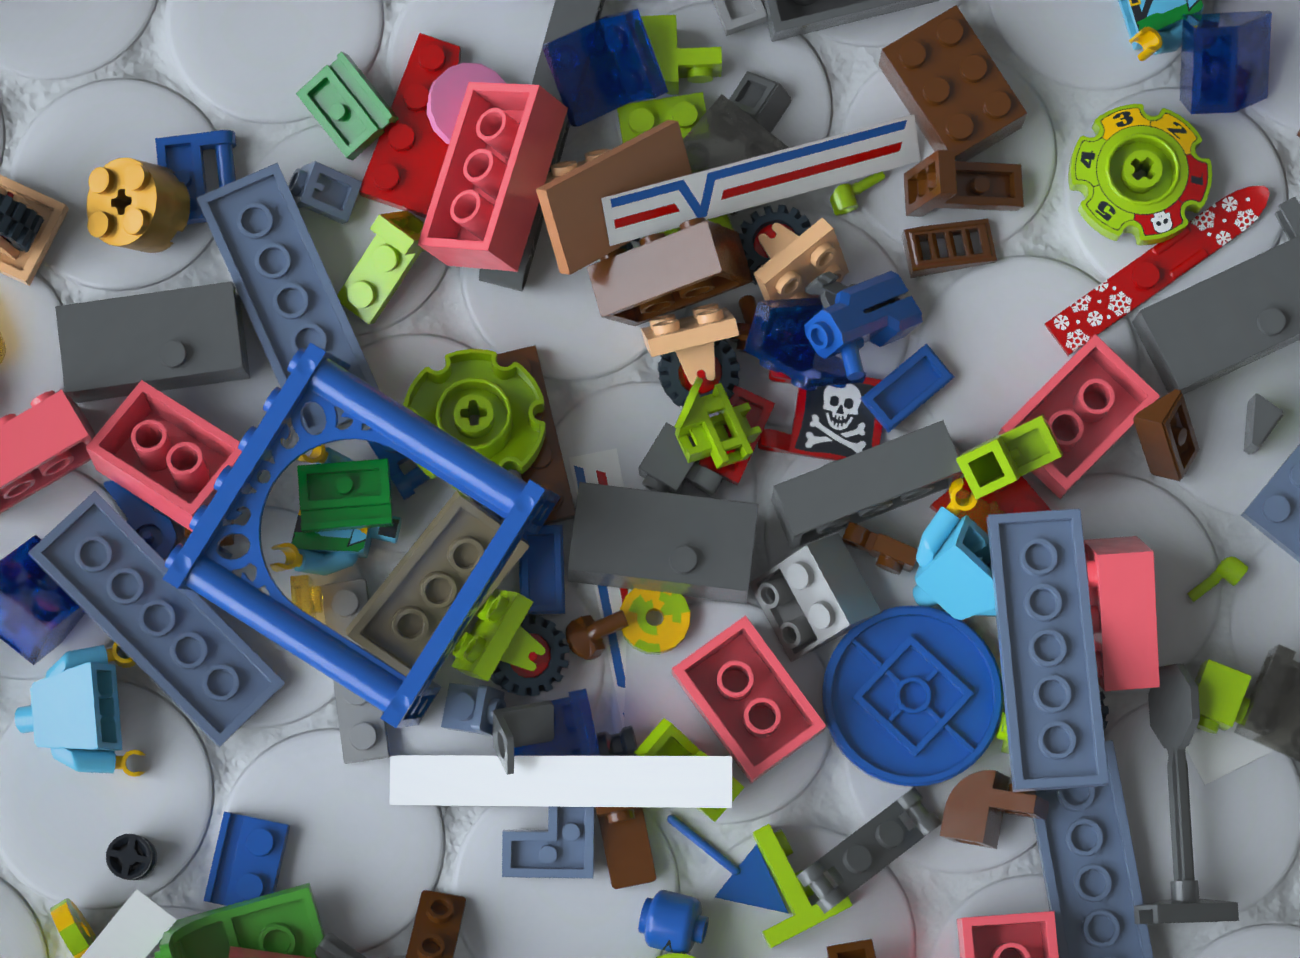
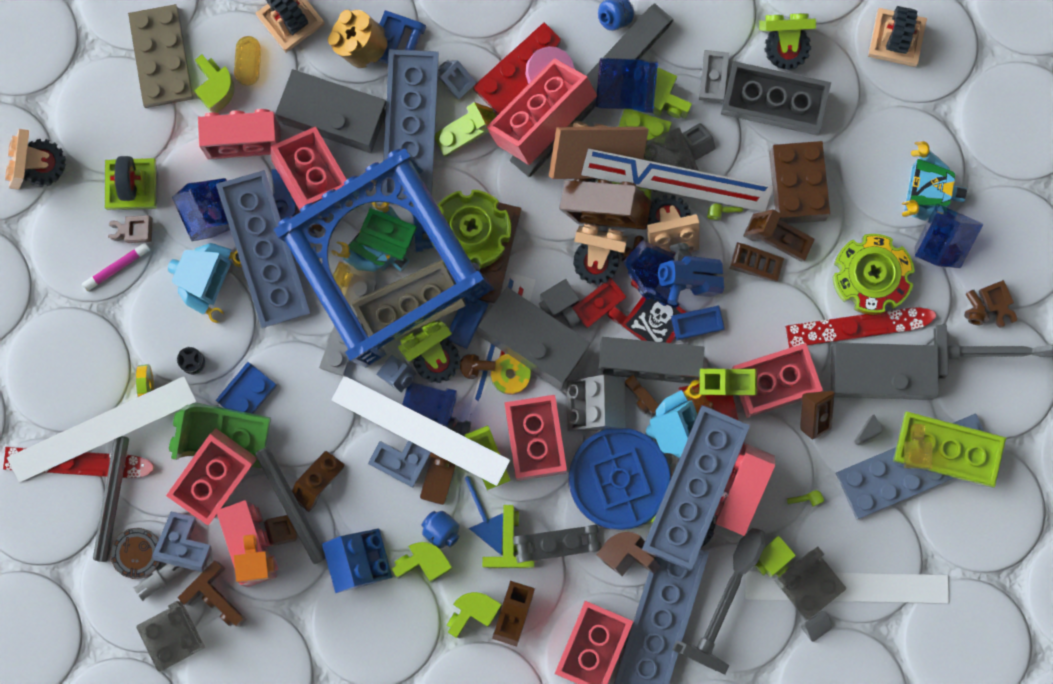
camera: 25 degrees right, 0 degrees up
(347, 106) = (488, 40): plate -> none
(521, 727) = (414, 393): dark grey bracket -> none
(709, 432) = (584, 295): lime piece -> none

